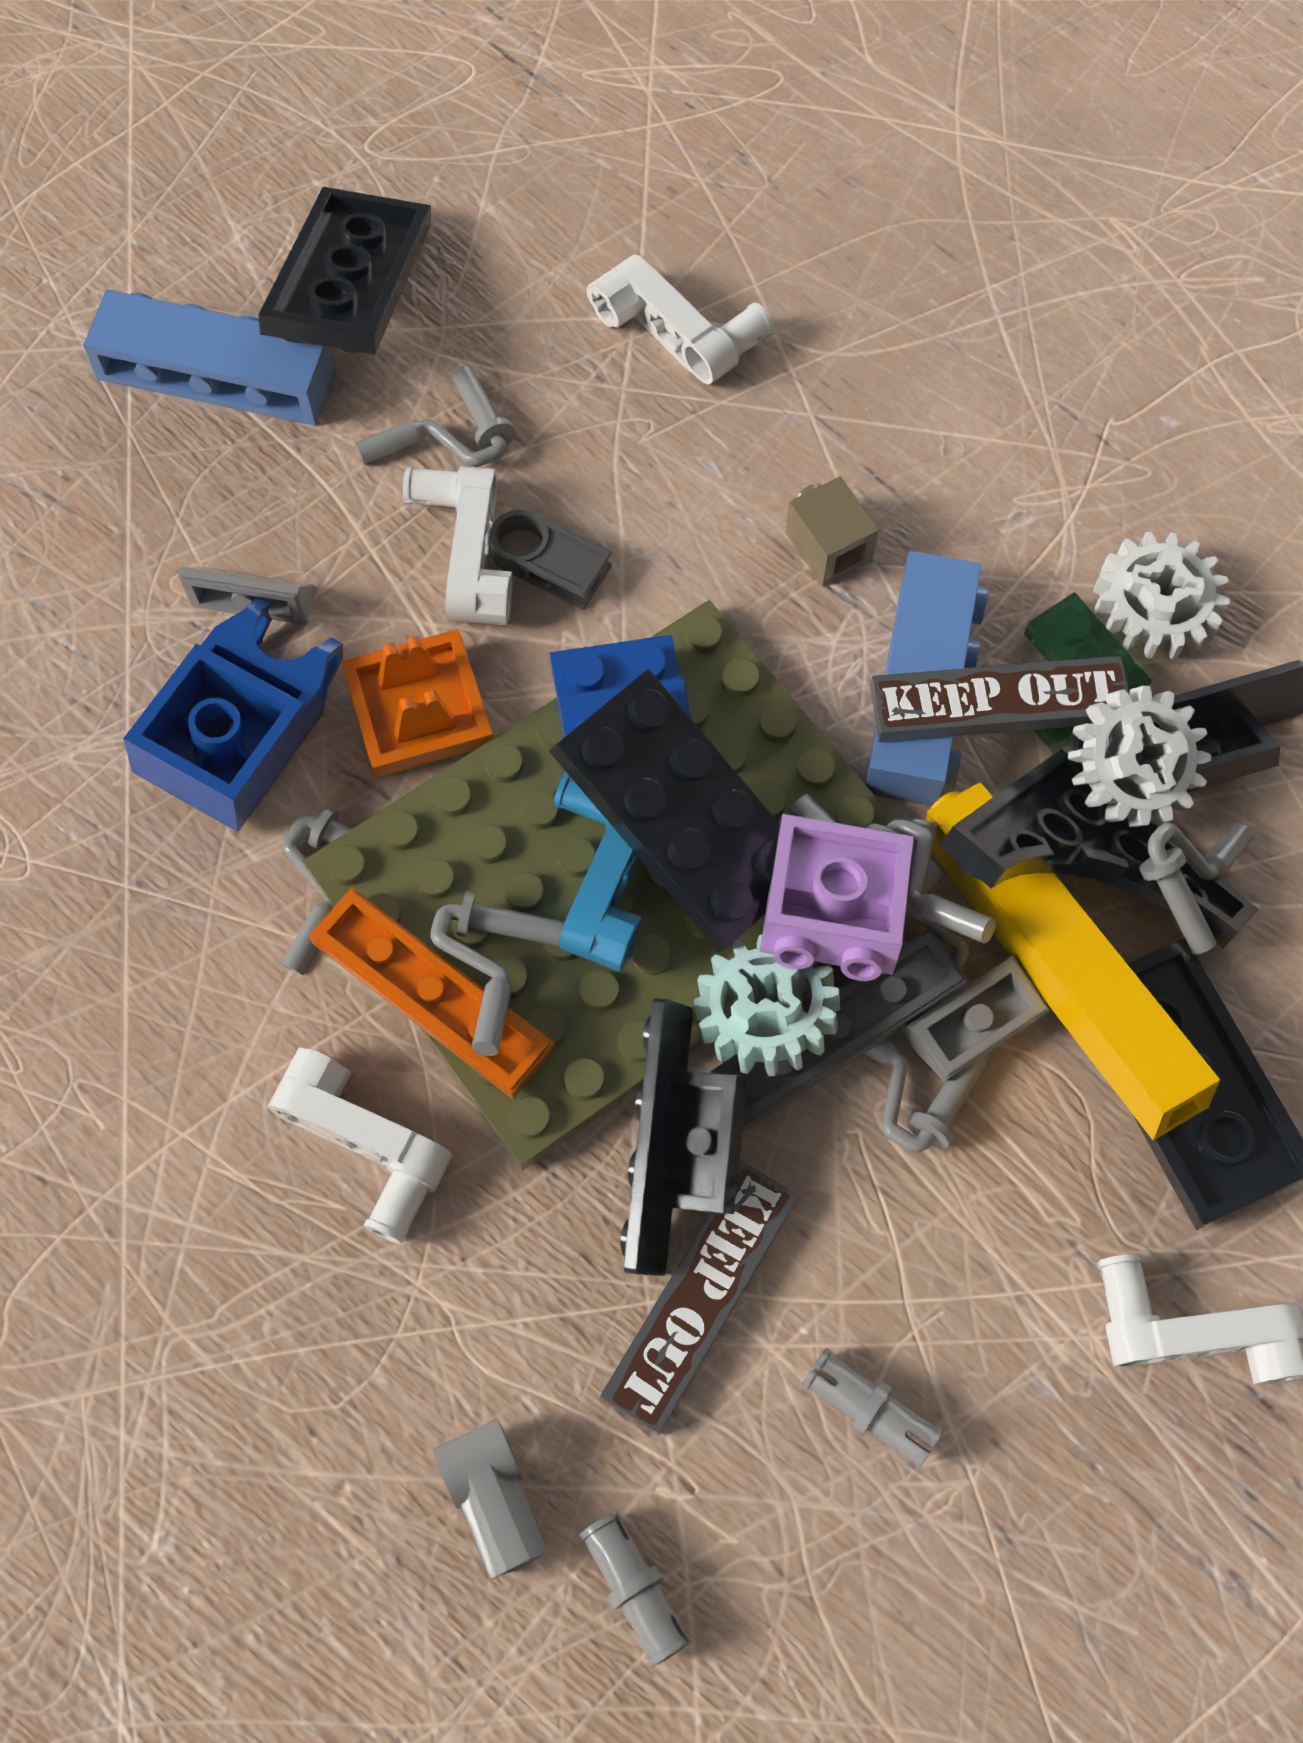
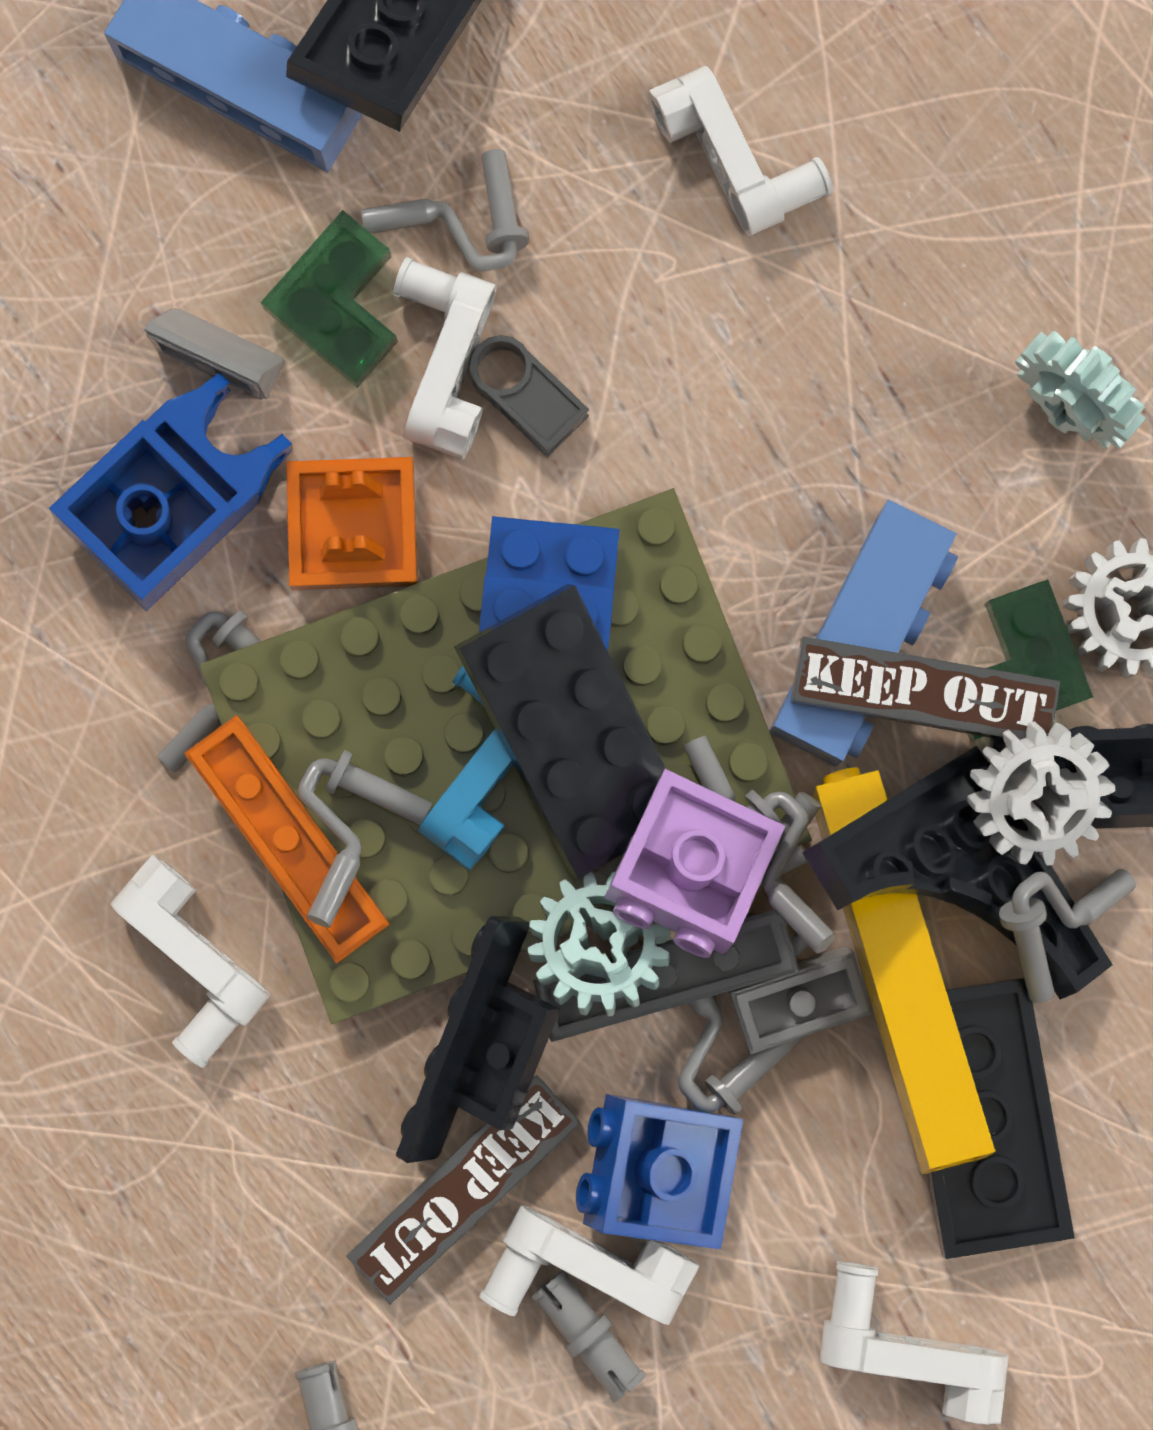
camera: 15 degrees right, 15 degrees up
(338, 525) = (319, 302): none -> clear green plate
(486, 1485) = (223, 1300): light grey piece -> none
(831, 530) = (819, 443): dark tan brick -> none
(892, 1218) = (659, 1172): none -> blue plate
(918, 1337) = (650, 1285): none -> white beam
(1048, 420) = (1080, 390): none -> light aqua gear

